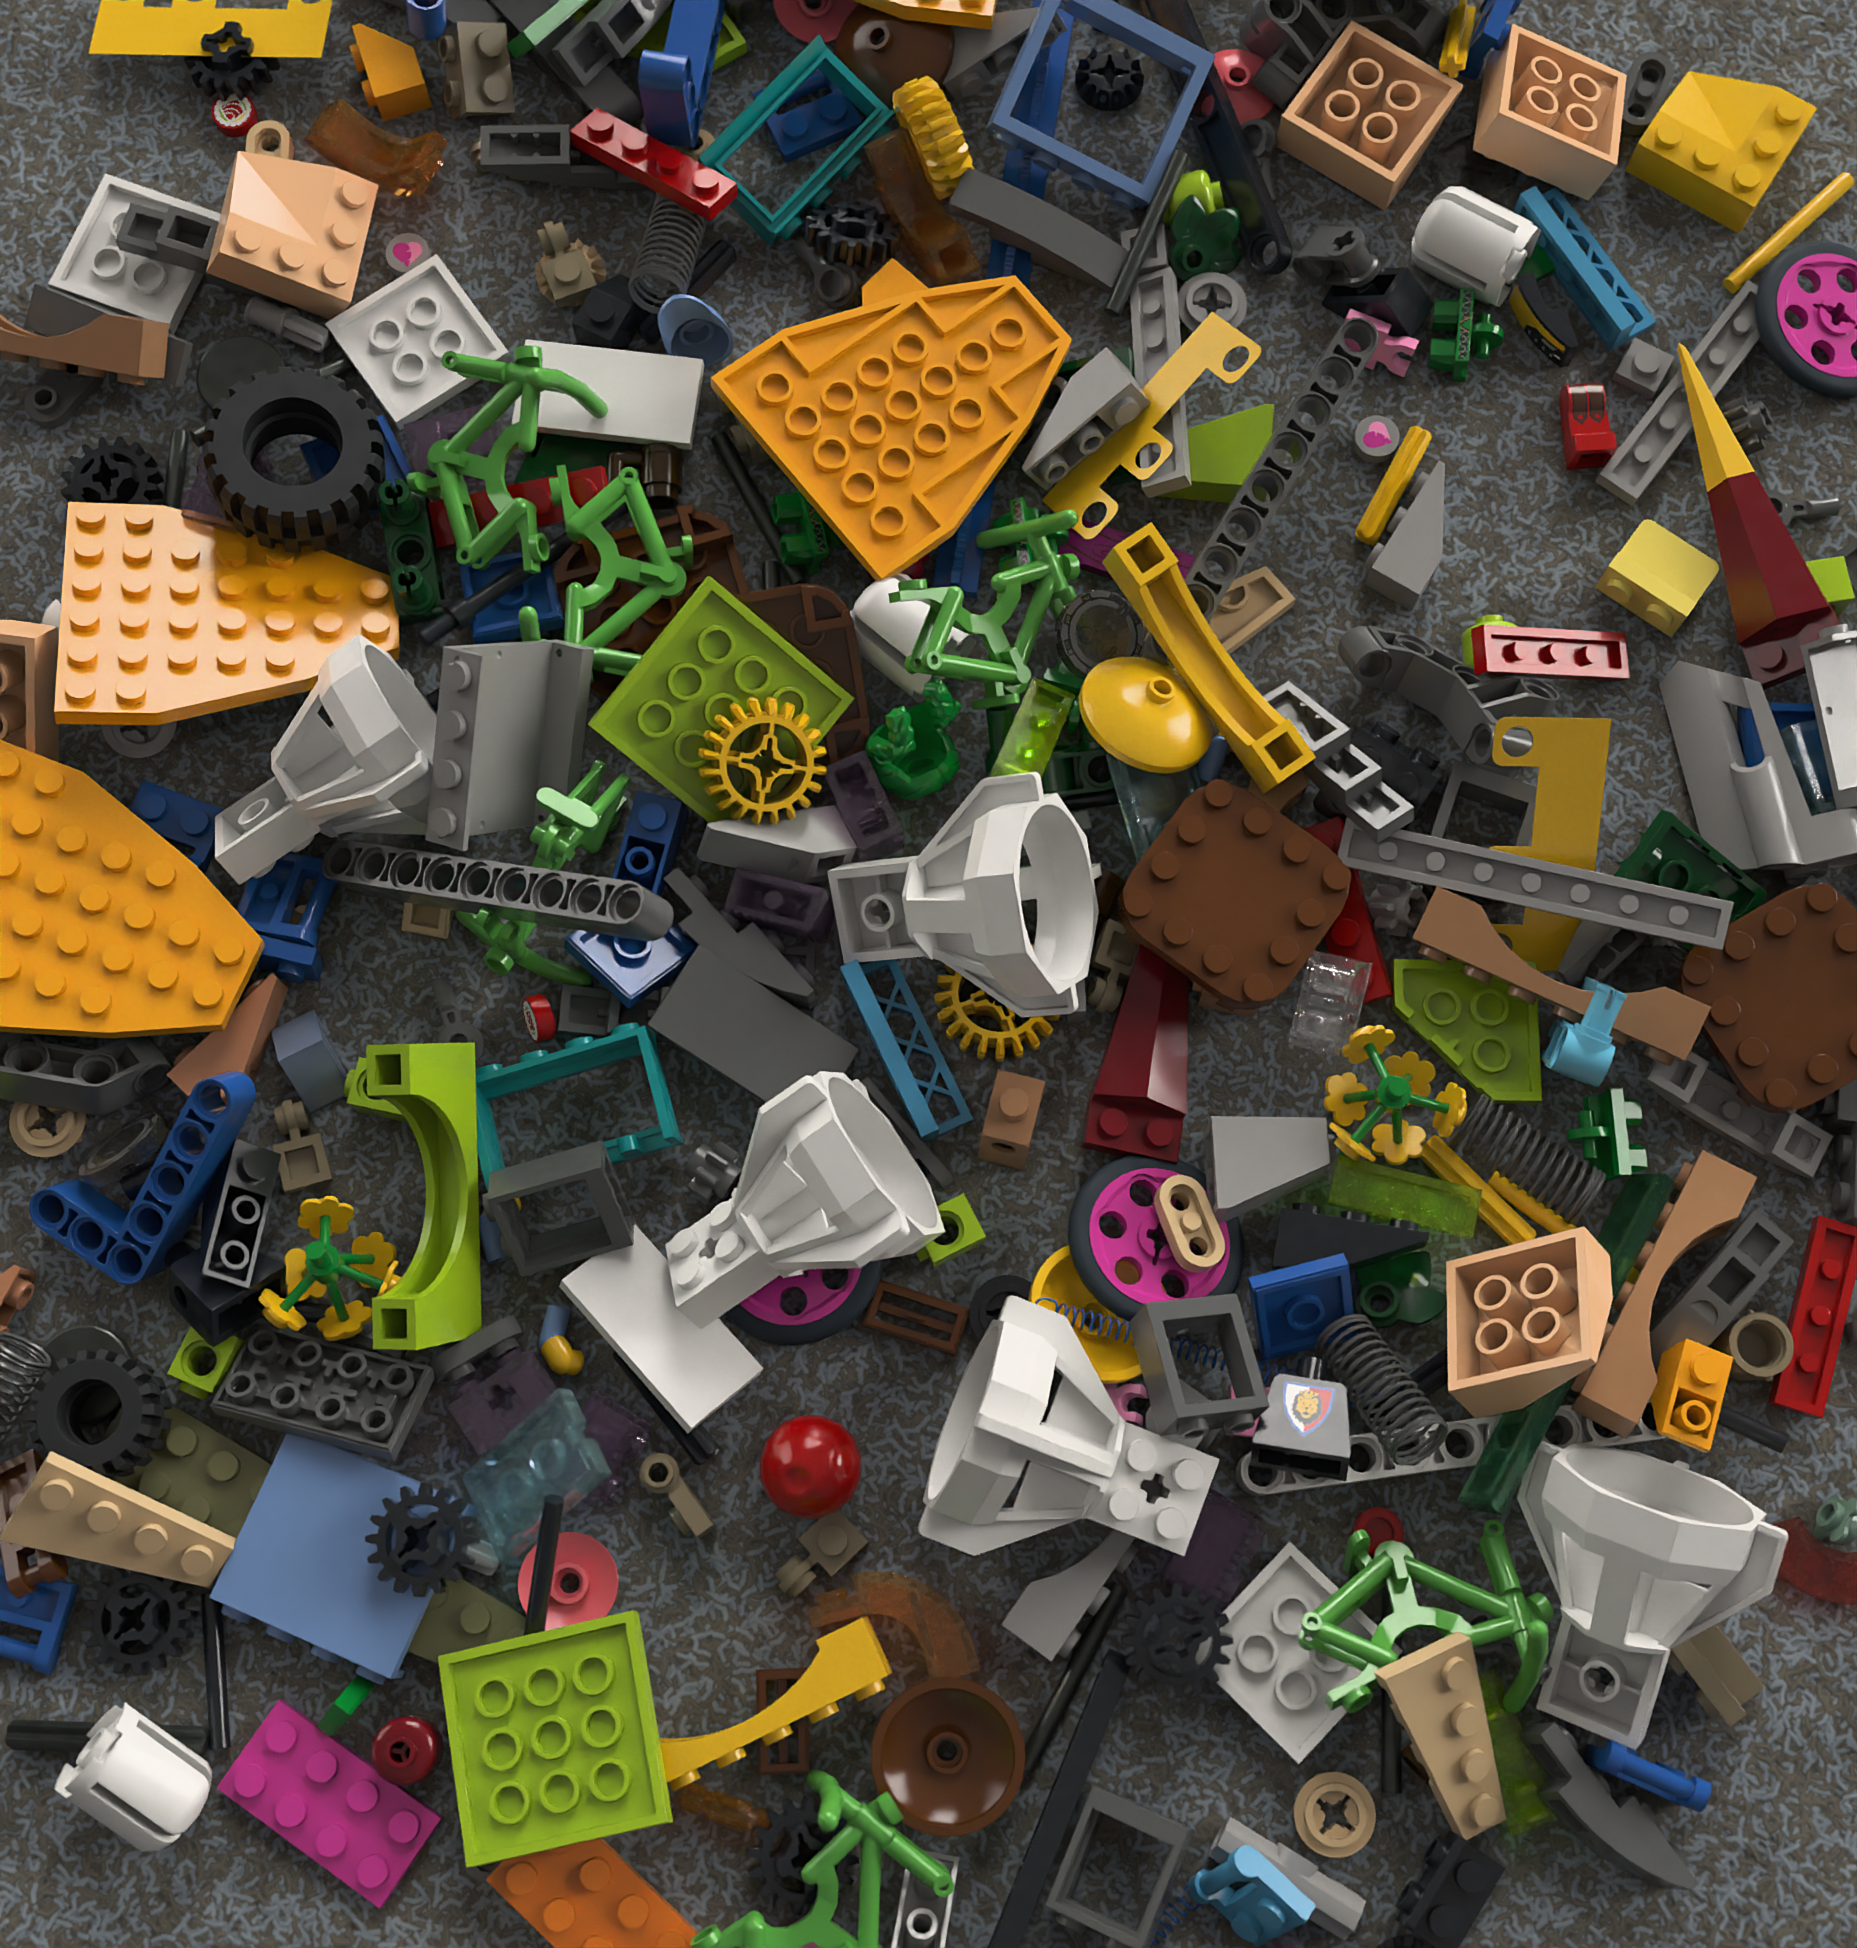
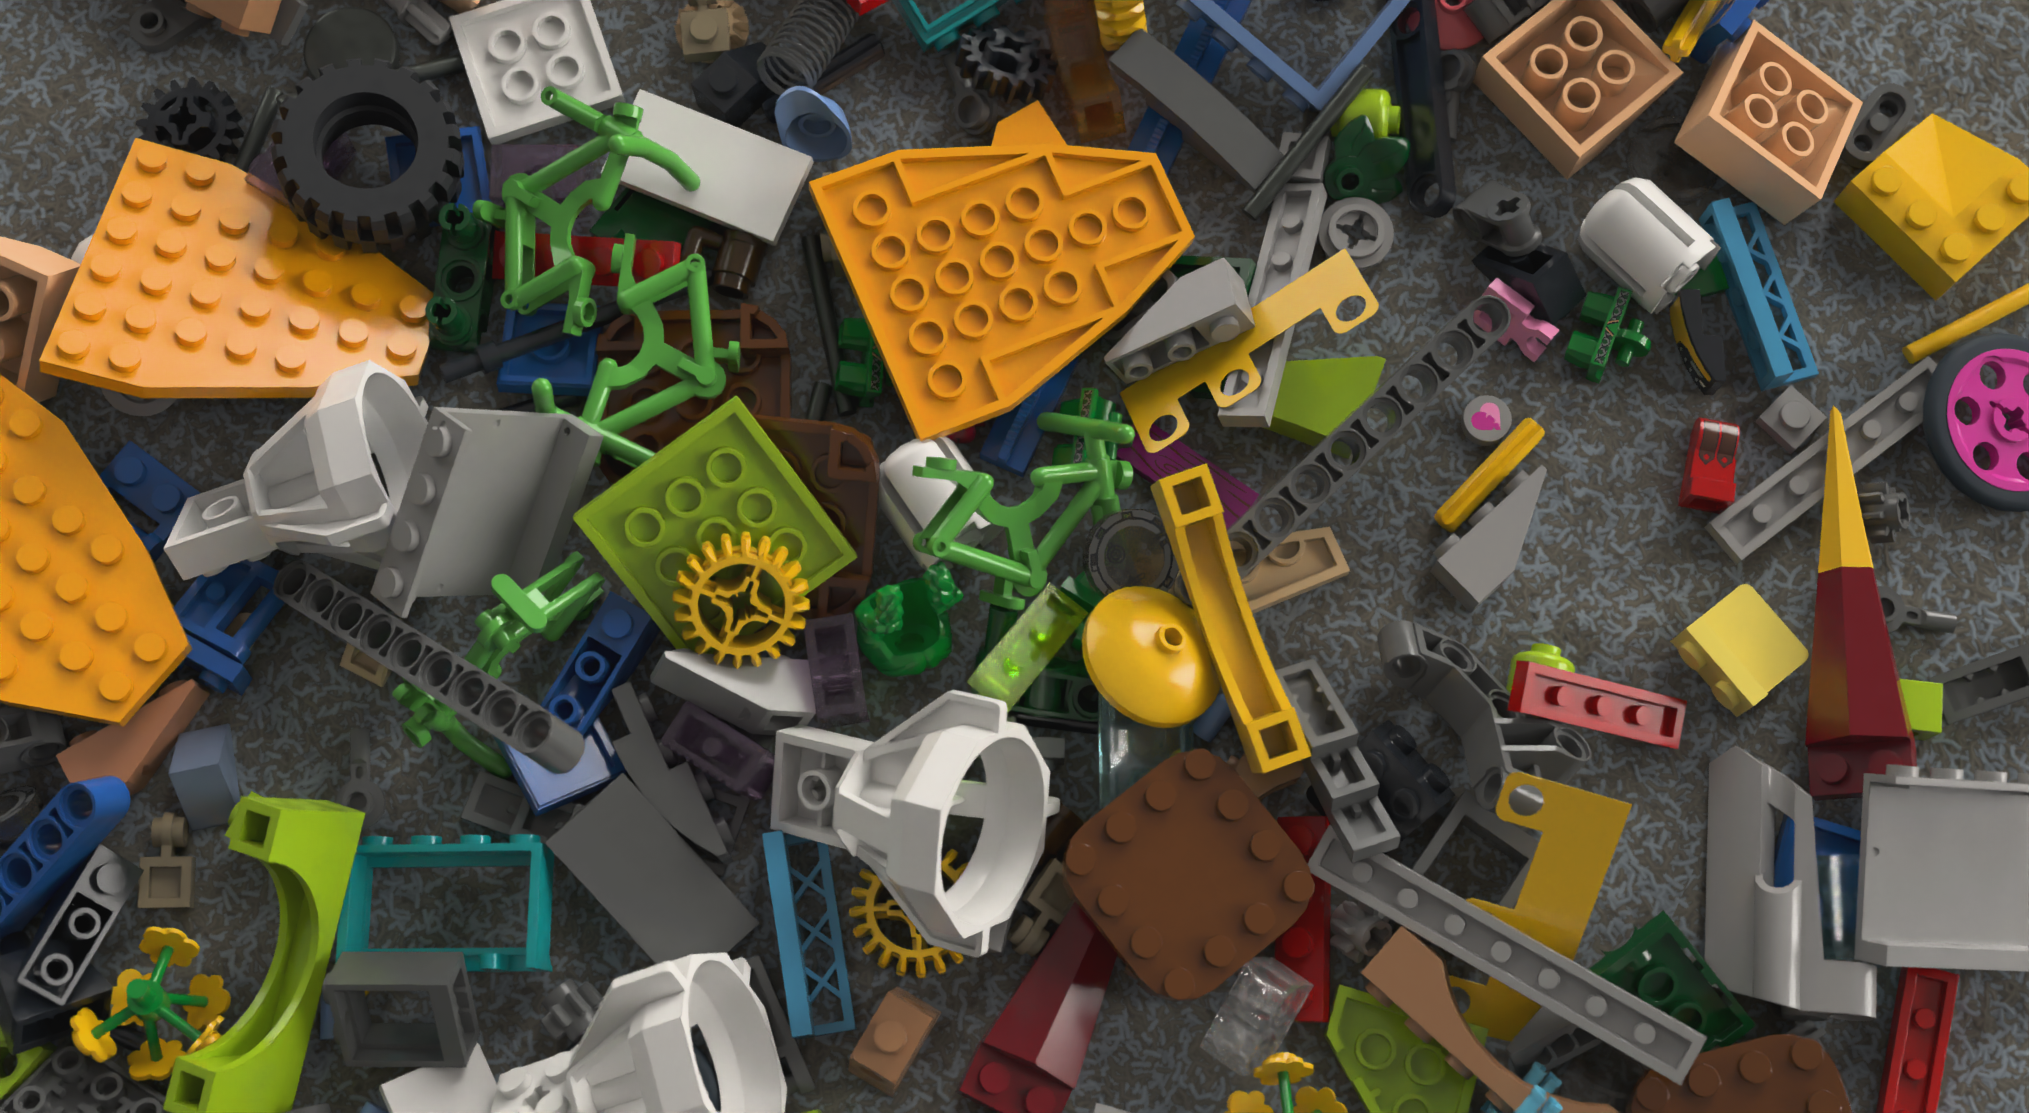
camera: 15 degrees right, 0 degrees up
(539, 1018) = (446, 798): red tile -> none

